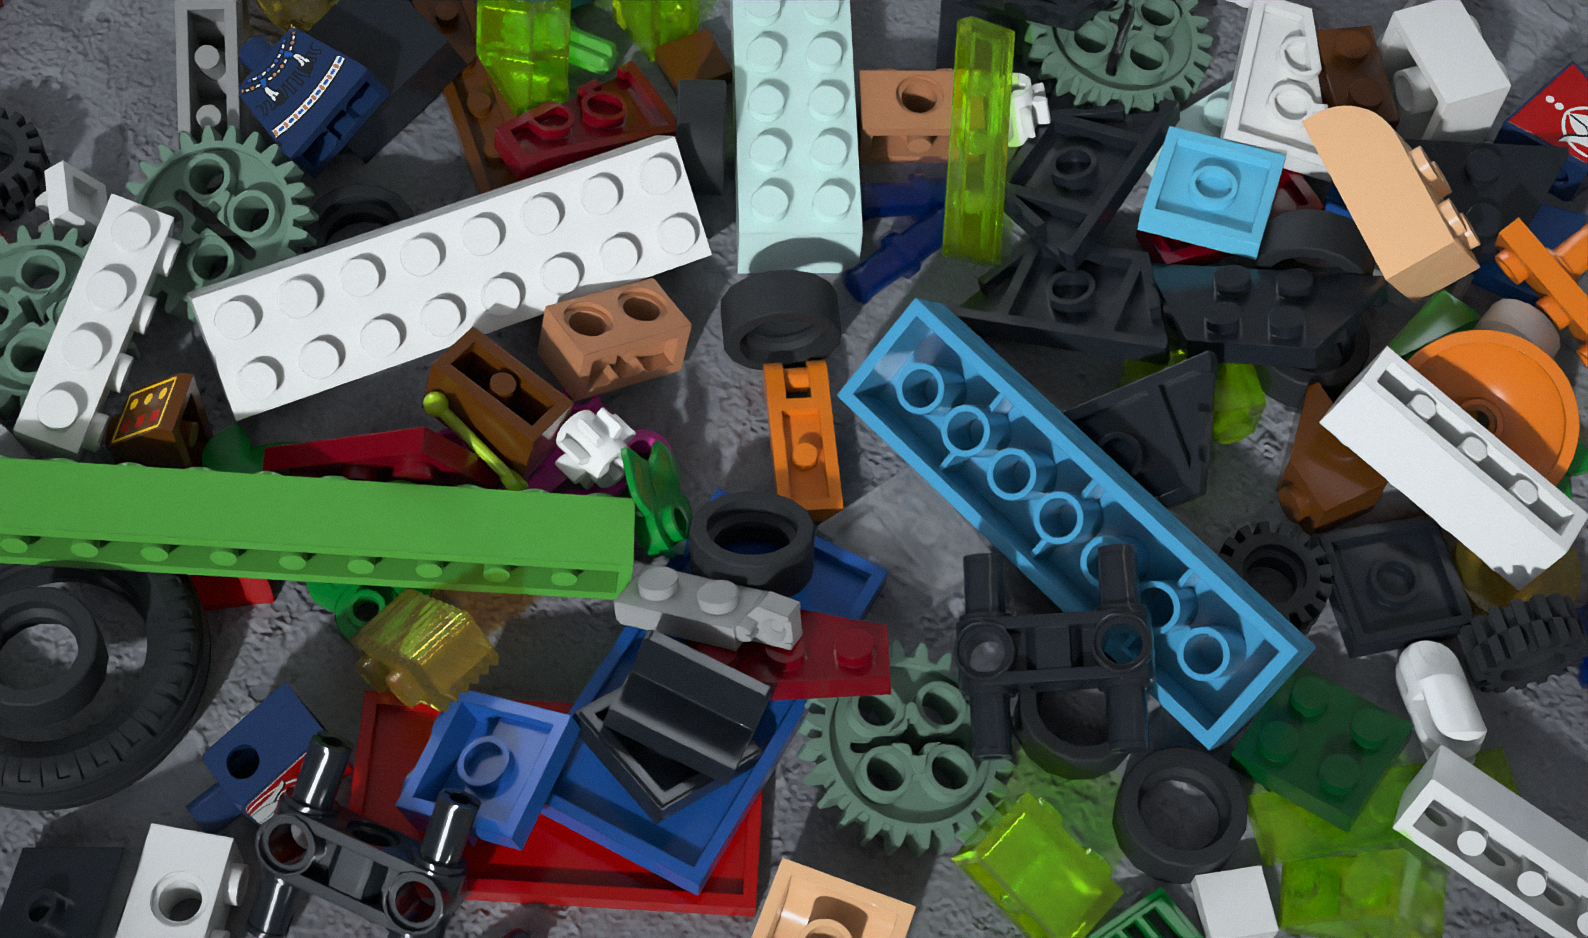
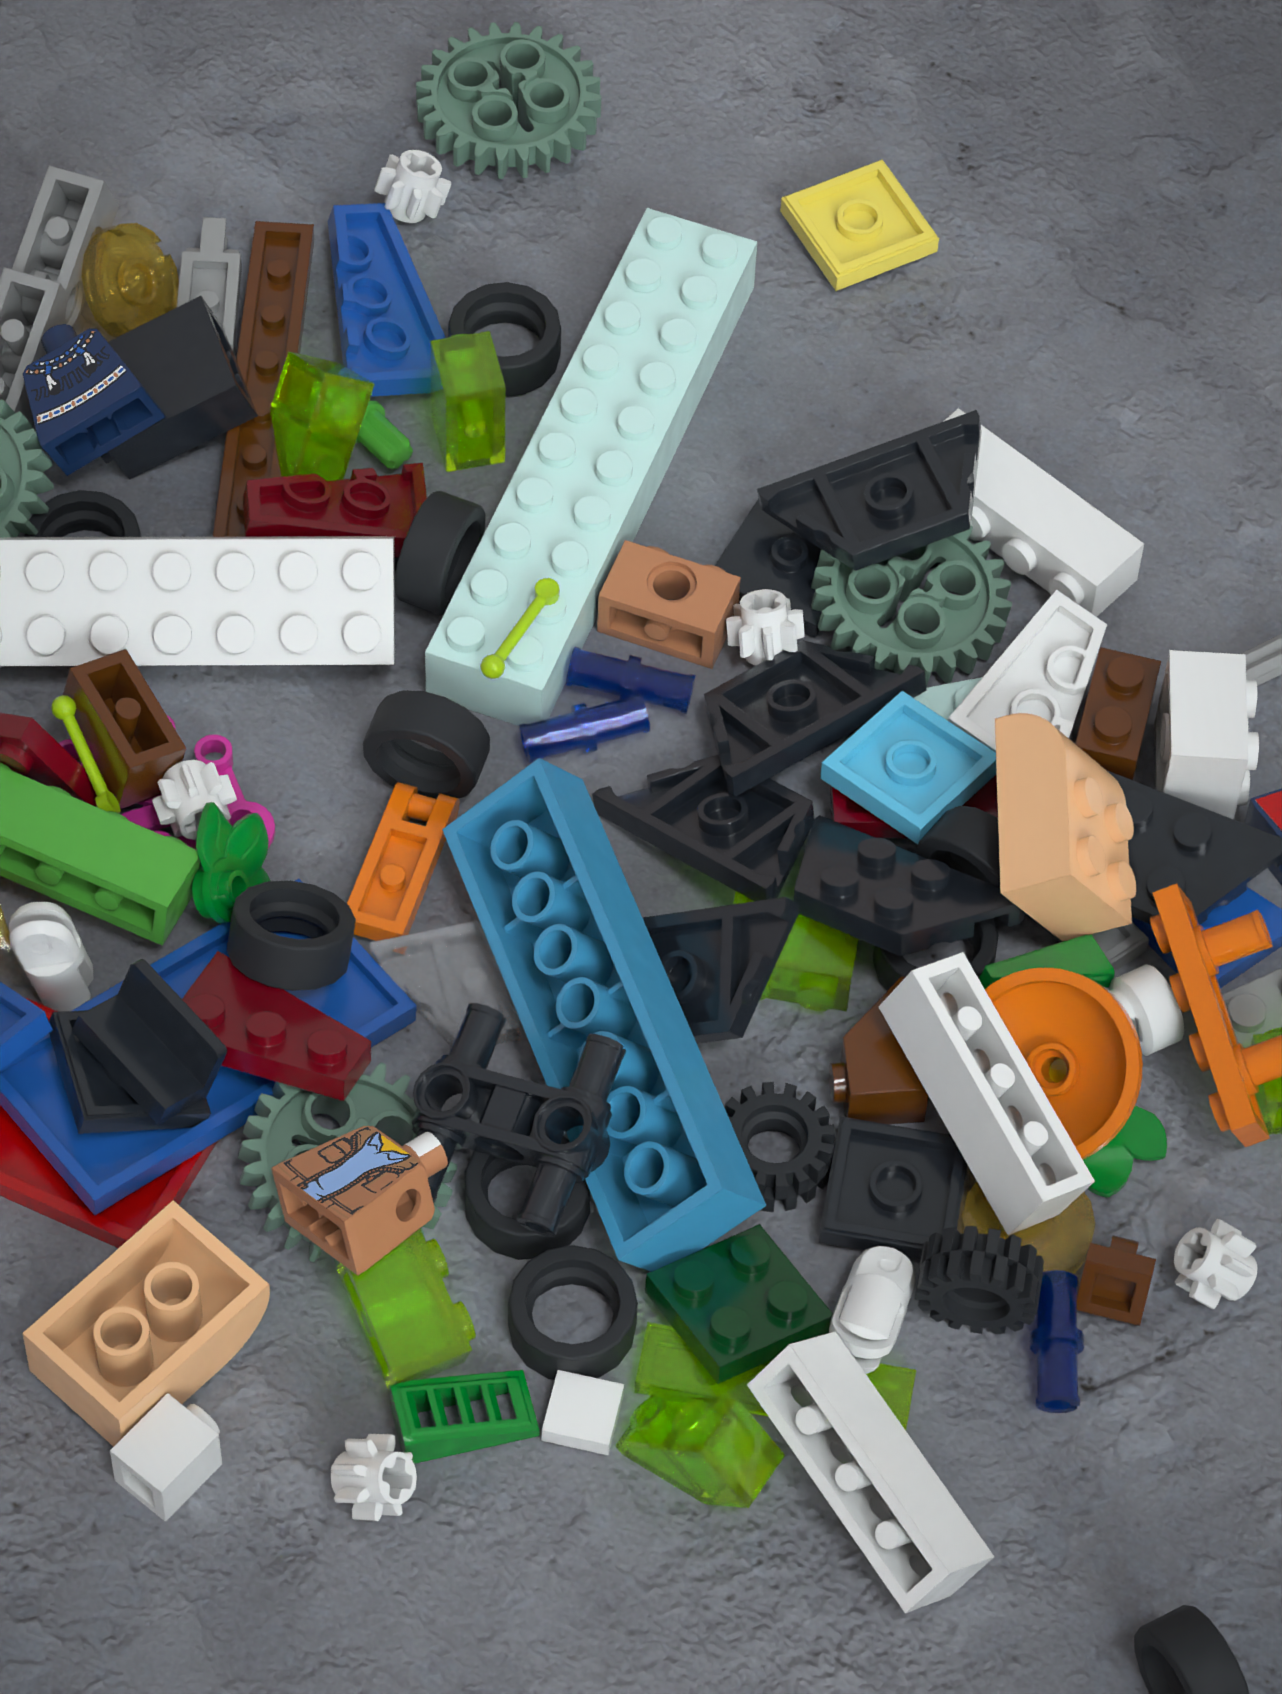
camera: 25 degrees right, 5 degrees down
(536, 652) = (51, 955): none -> white arm
(613, 338) = (264, 709): nougat brick -> none
(692, 58) = (481, 479): reddish brown tile -> none
(708, 610) = (214, 969): light grey hinge -> none
(825, 142) = (546, 593): none -> lime hinge
(962, 784) = (360, 1193): none -> nougat torso
(978, 142) = (700, 643): clear neon green tile -> none

